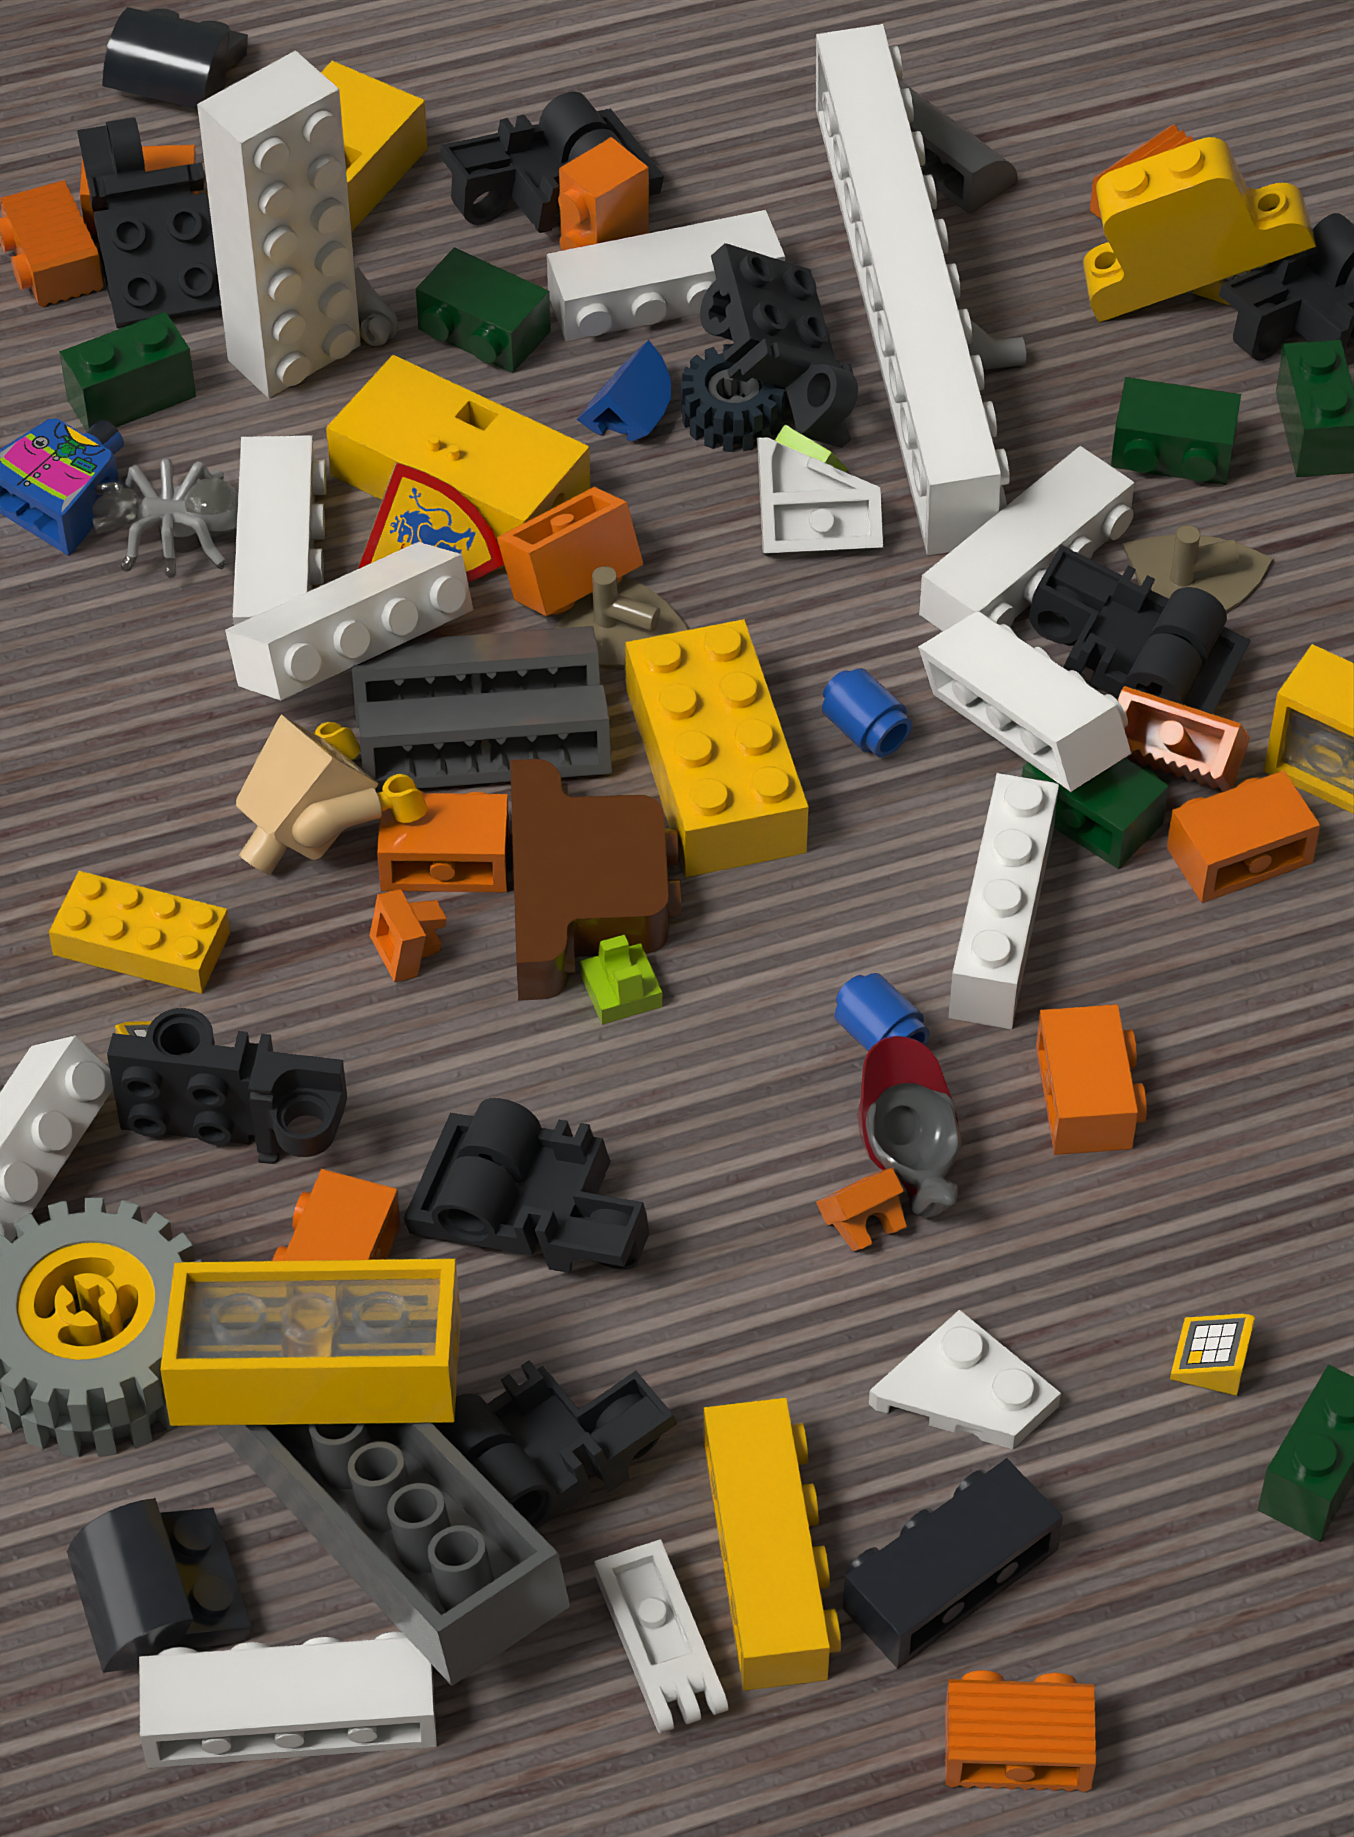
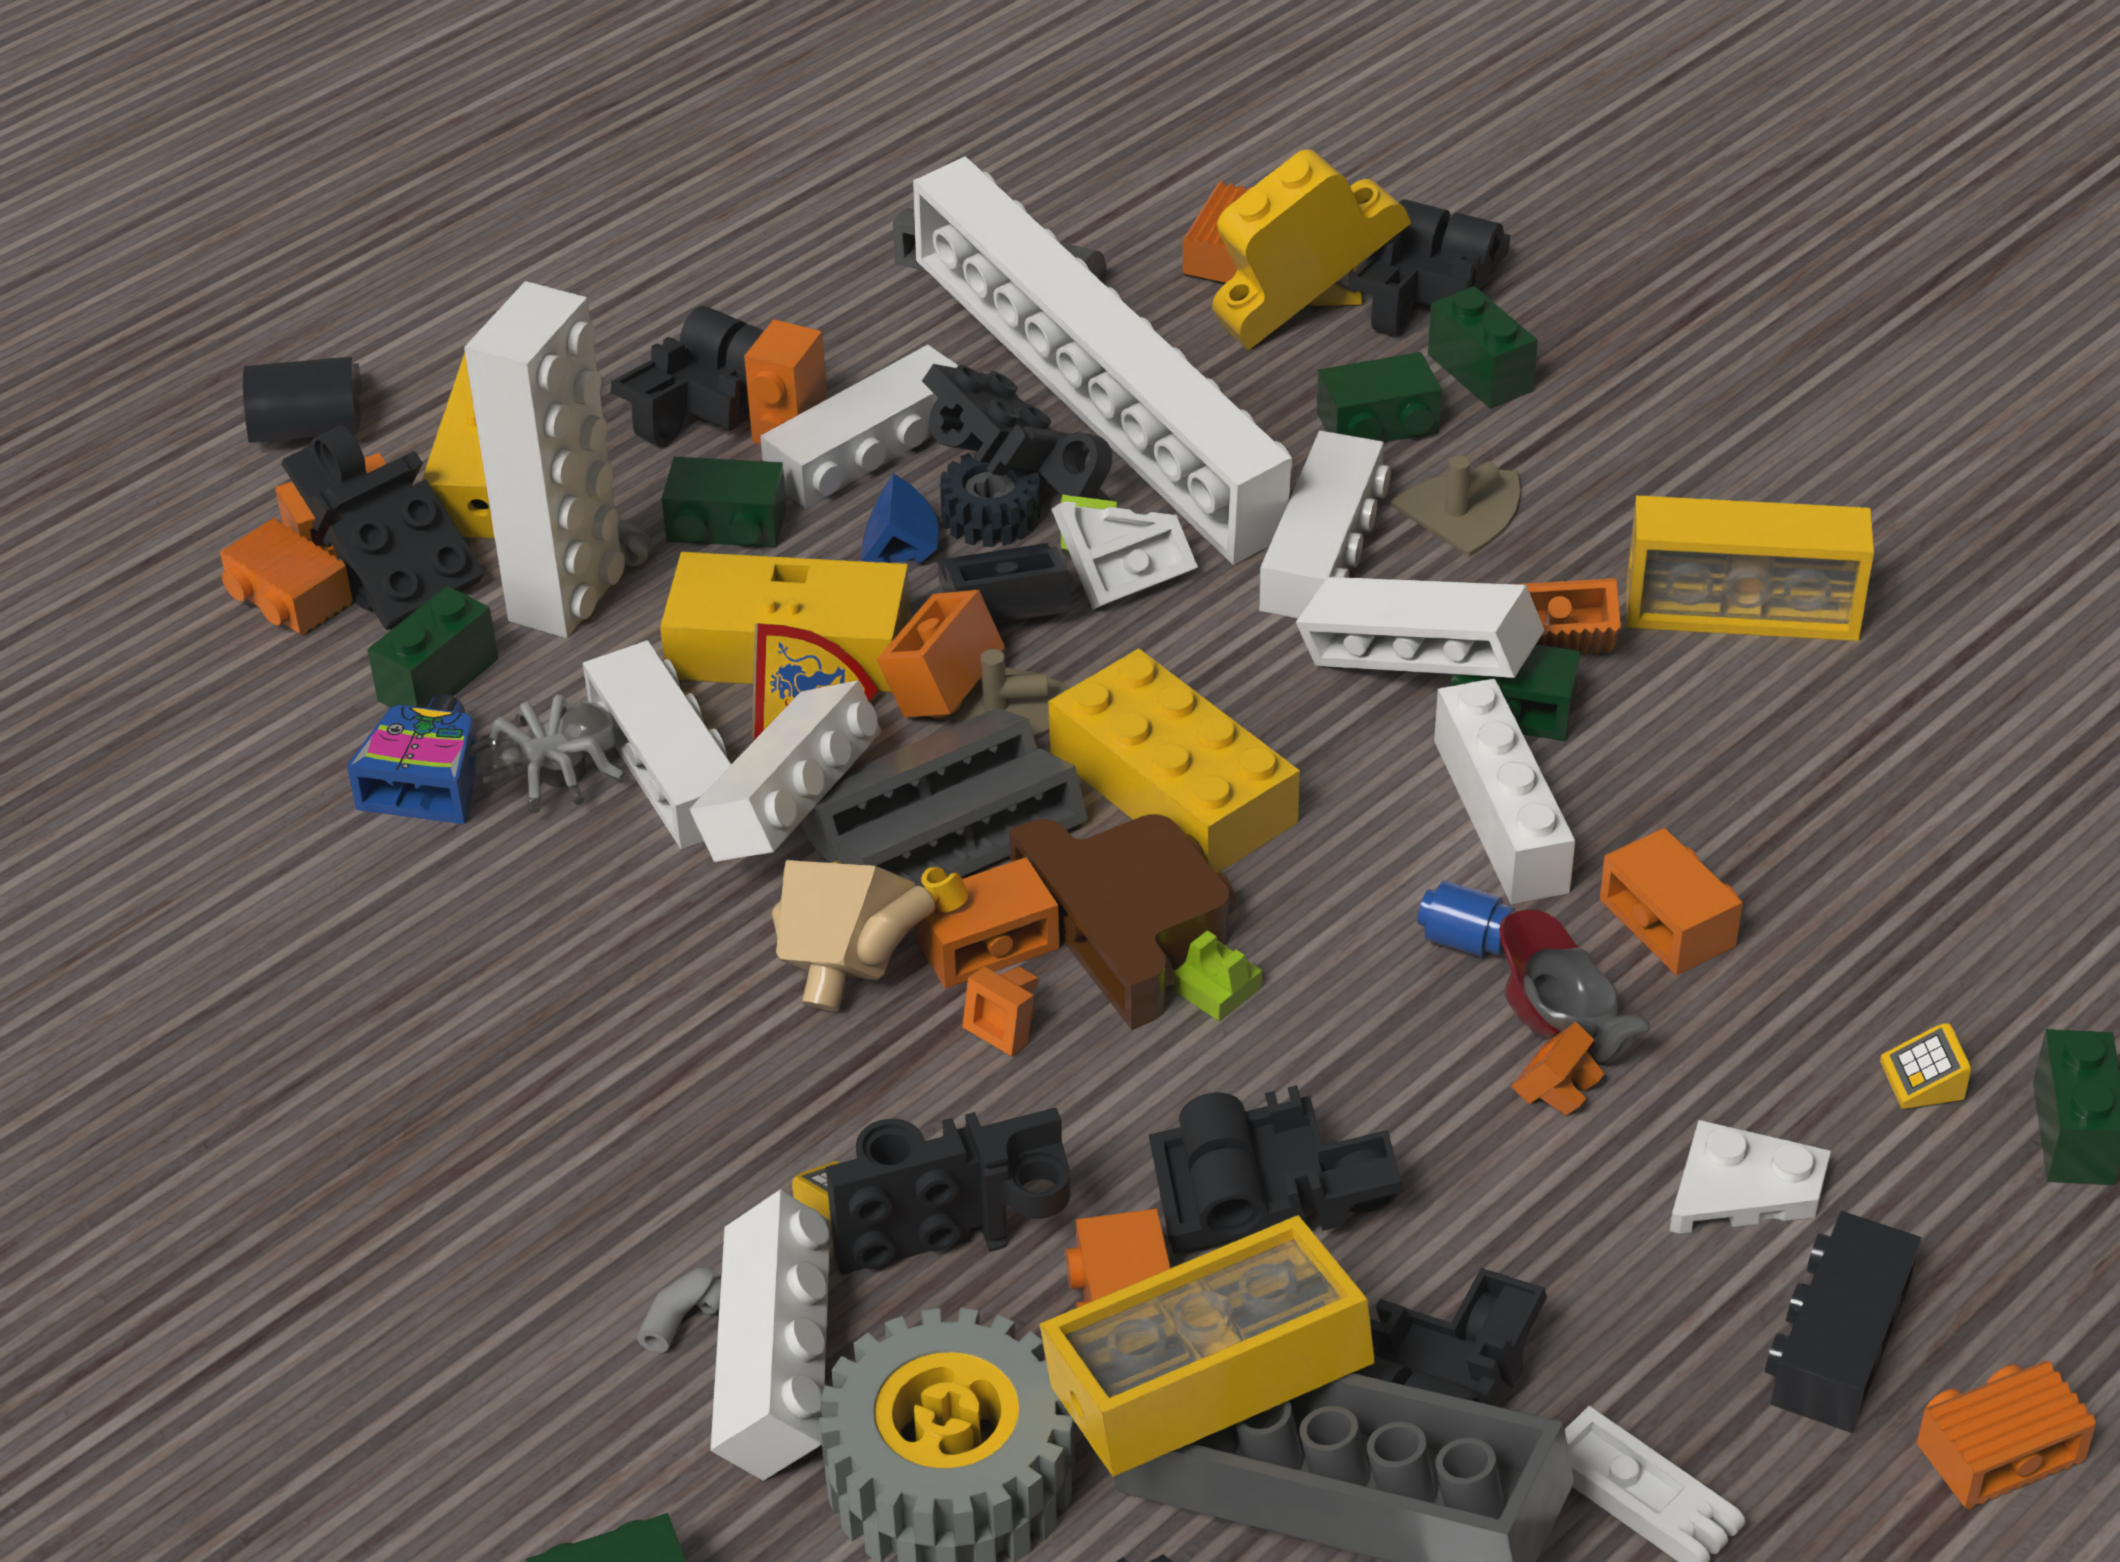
camera: 25 degrees left, 10 degrees down
(139, 932) = (752, 1100): yellow piece -> none
(683, 496) = (1012, 581): none -> black brick
(767, 1544) = (1680, 1373): yellow brick -> none
(866, 712) = (1278, 692): blue brick -> none
(1136, 635) = (1442, 546): black plate -> none
(1242, 836) = (1656, 674): orange brick -> none

